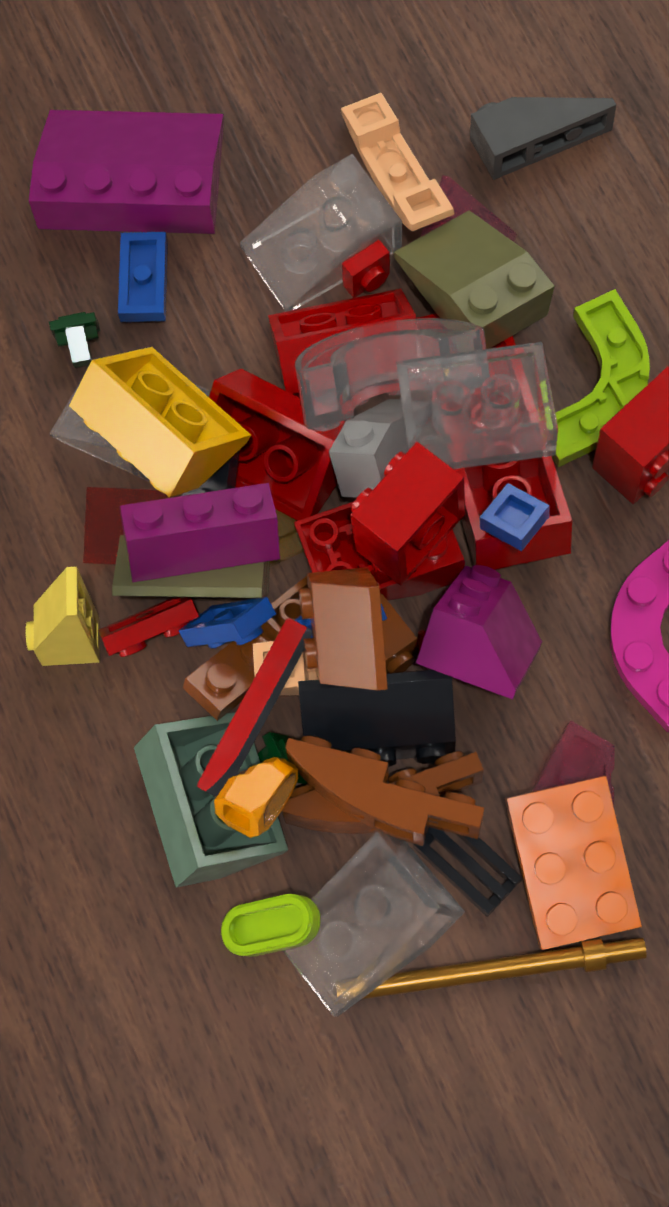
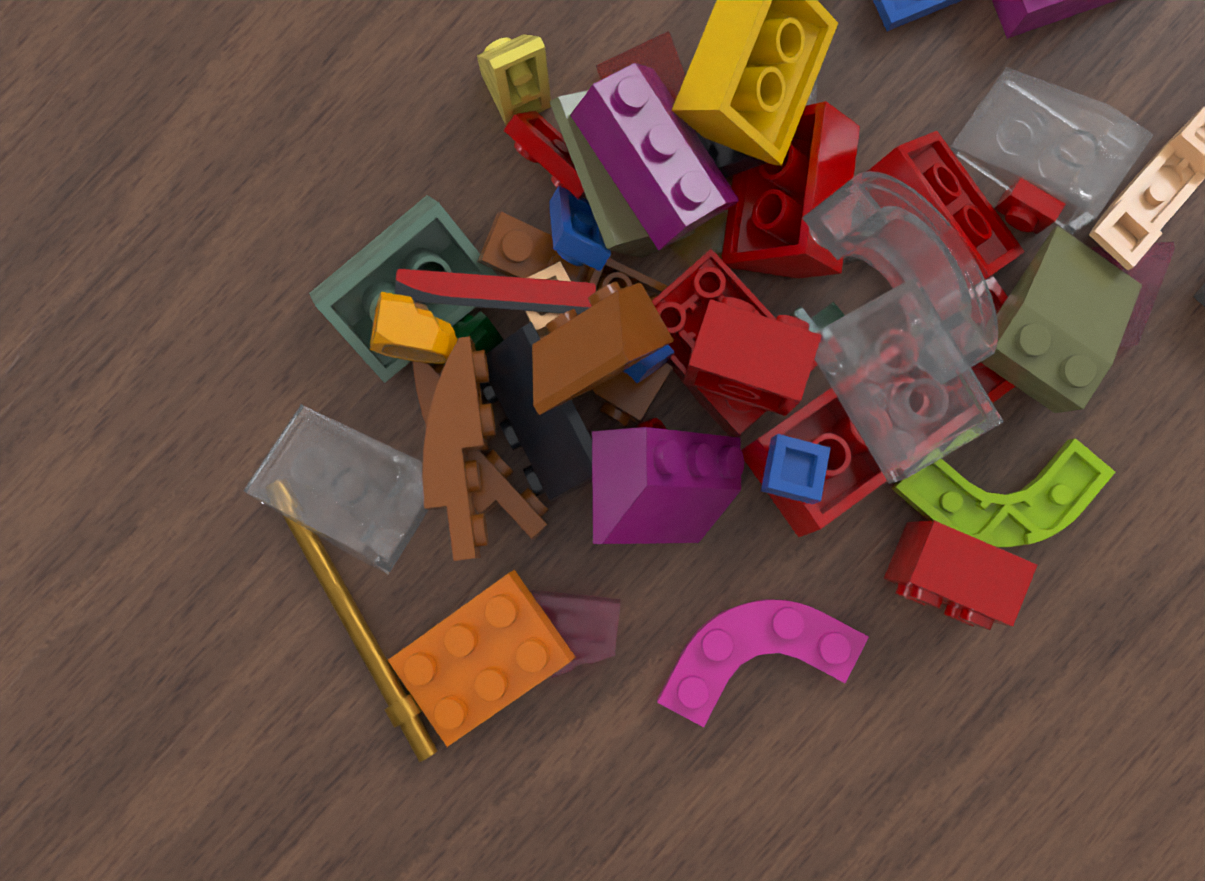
camera: 60 degrees right, 15 degrees up
(270, 925) = (307, 397): lime tile -> none
(367, 447) = (817, 288): light grey slope -> none
(458, 881) = (430, 597): black tile -> none

